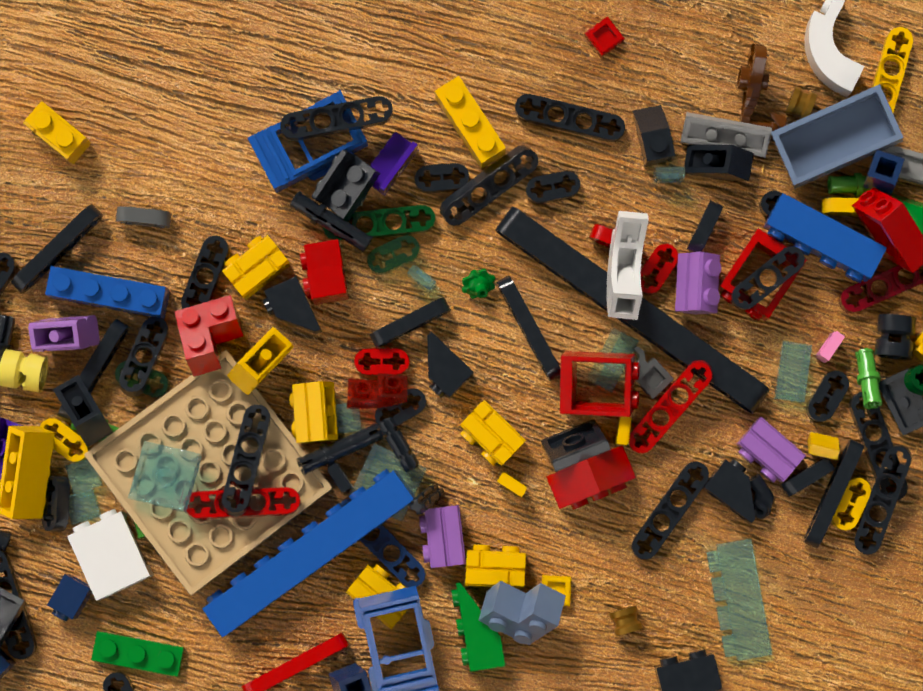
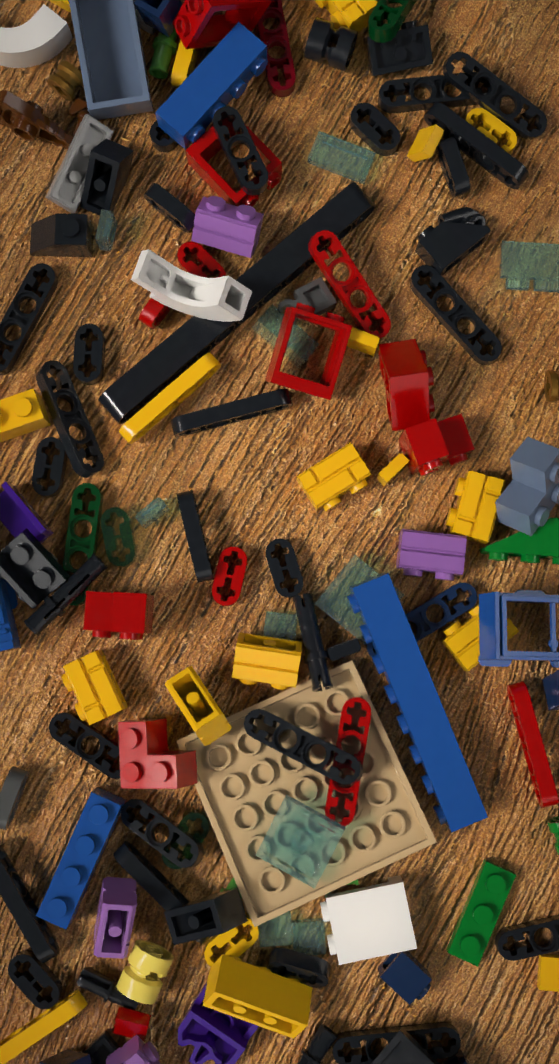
camera: 75 degrees left, 0 degrees up
(291, 305) = (146, 658): black slope -> none
(378, 393) = (262, 579): clear red slope -> none
(398, 444) = (323, 577): black axle -> none
(426, 499) = (388, 561): black axle -> none
(445, 369) = (253, 510): black slope -> none
(478, 283) = (171, 454): green plant -> none
(529, 270) = (170, 398): none -> yellow beam
(543, 519) = (436, 443): none -> red brick
(559, 583) = (505, 448): yellow tile -> none
(575, 445) = (368, 391): black plate -> none
(770, 450) = (418, 197): medium lavender brick -> none
(829, 346) = (325, 112): bright pink tile -> none
(868, 378) = (367, 81): bright green pin -> none

